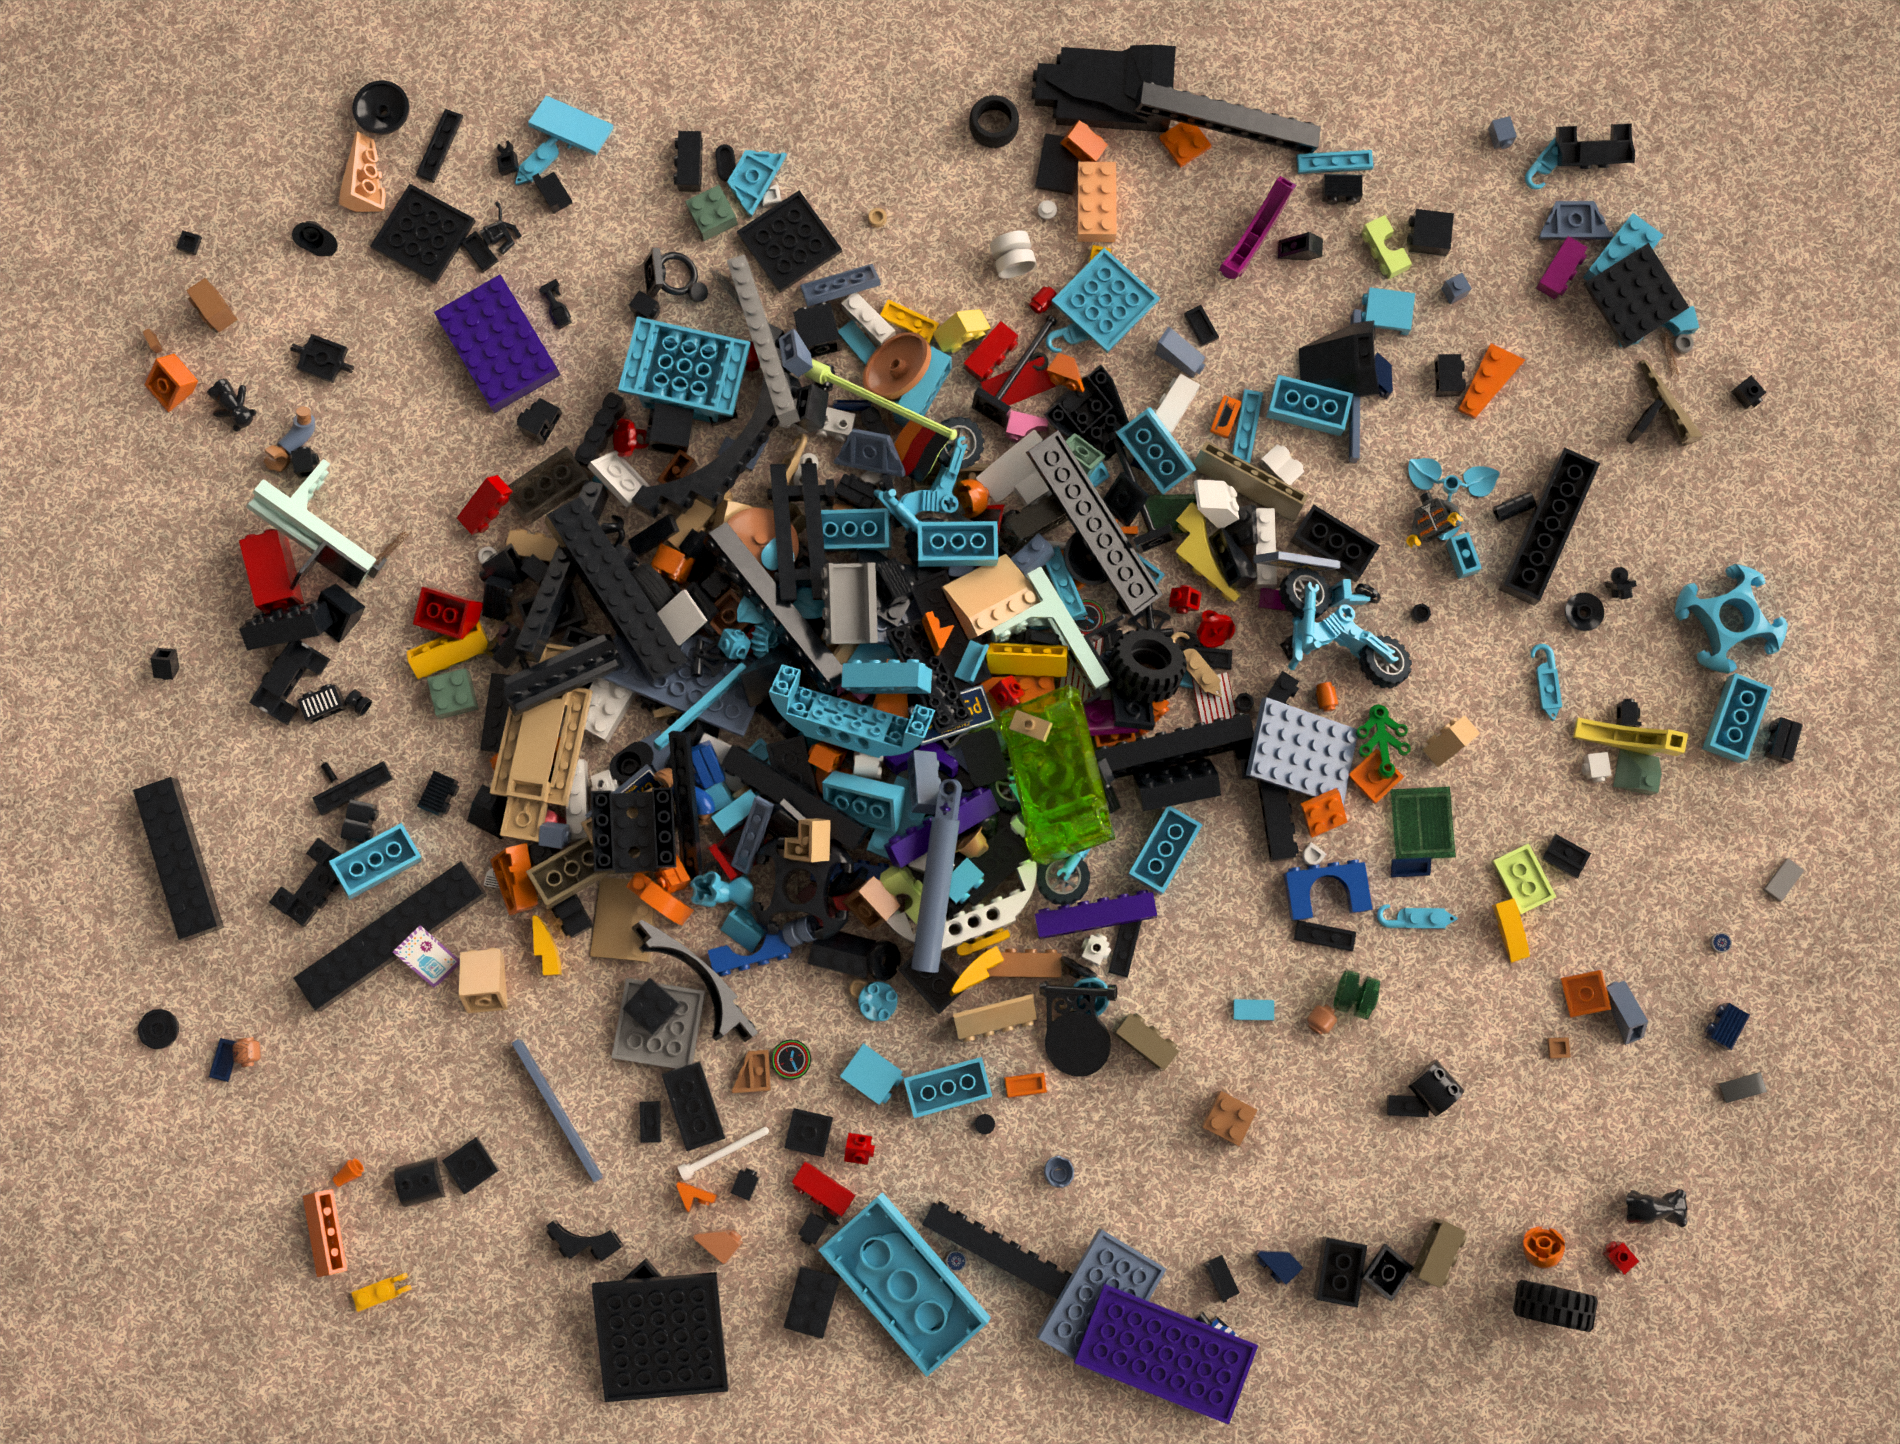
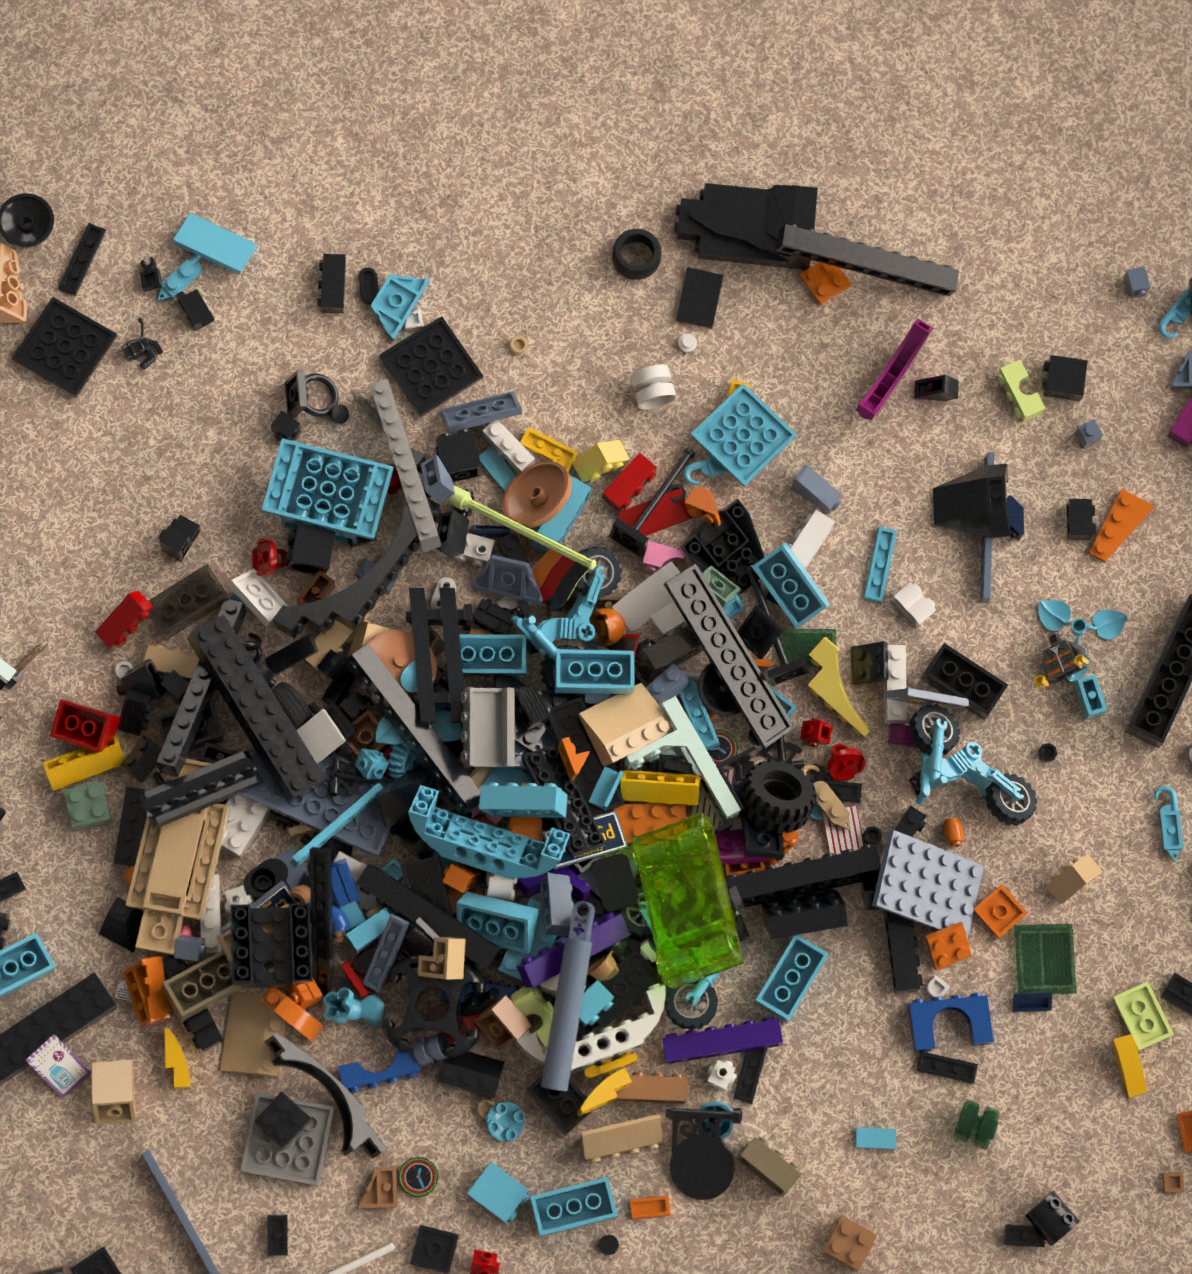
camera: 10 degrees left, 5 degrees down
(438, 794) = (71, 906): black brick -> none
(479, 251) = (120, 366): black tile -> none
(497, 343) = (138, 459): dark purple brick -> none
(557, 310) = (197, 427): black piece -> none
(603, 427) = (242, 546): black brick -> none
(672, 562) = (310, 682): orange brick -> none
(693, 1106) = (321, 1220): black plate -> none
(711, 212) = (354, 335): sand green brick -> none
(743, 928) = (373, 1046): medium azure panel -> none
(793, 458) = (431, 581): tan plate -> none
(875, 956) = (503, 1080): black tile -> none
(1007, 692) = (640, 819): red brick -> none
(1031, 726) = (663, 852): tan plate -> none
(1042, 299) = (681, 432): red brick -> none
(1076, 969) = (702, 1094): black dish -> none
(1084, 143) = (725, 279): orange brick -> none
(1096, 202) = (736, 337): light nougat brick -> none
(1201, 325) = (837, 462): black tile -> none
(1217, 502) = (849, 637): white slope -> none
(1225, 416) = (859, 553): orange slope -> none
(1233, 562) = (864, 697): black slope -> none
(1250, 481) = (882, 617): dark tan brick -> none
(1309, 405) = (942, 545): medium azure brick -> none
(1322, 1019) = (942, 1149): nougat head -> none
(1334, 161) = (972, 304): medium azure tile -> none
(1342, 188) = (978, 331): black brick -> none
(1343, 595) = (970, 732): medium azure piece -> none
(1383, 737) = (1007, 873): green plant -> none
(1389, 309) = (1022, 452): medium azure panel -> none
(1417, 918) = (1037, 1052): medium azure plate -> none
(1514, 506) = (1141, 650): black axle -> none

